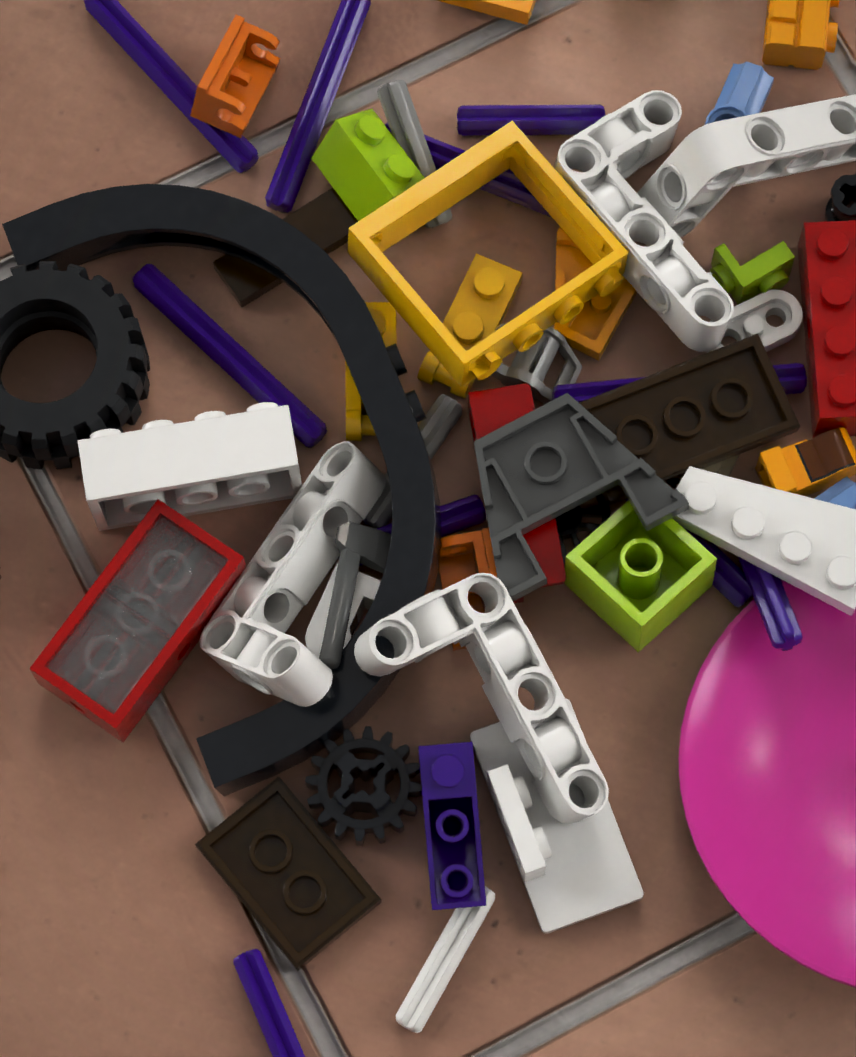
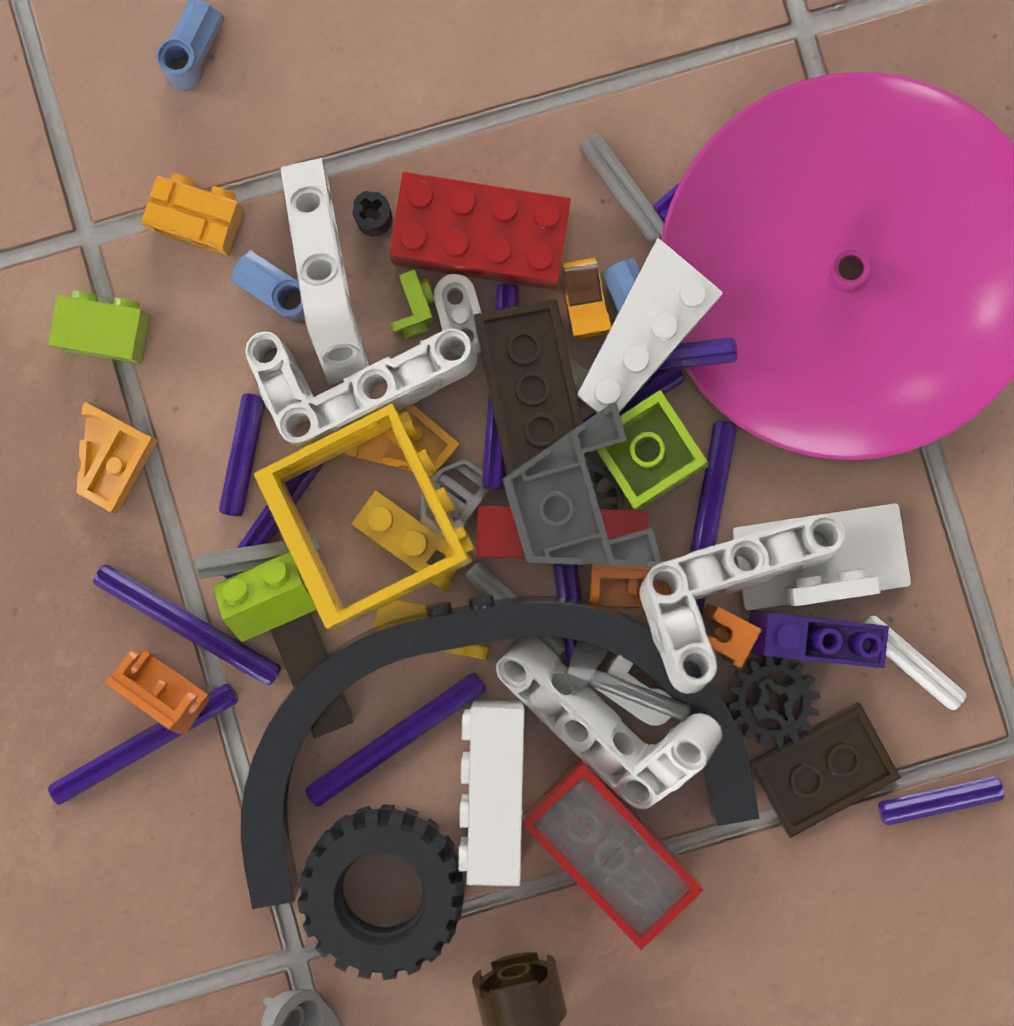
camera: 80 degrees left, 15 degrees up
(434, 711) = (733, 637): none -> orange hinge
(587, 667) = (713, 489): none -> dark purple axle

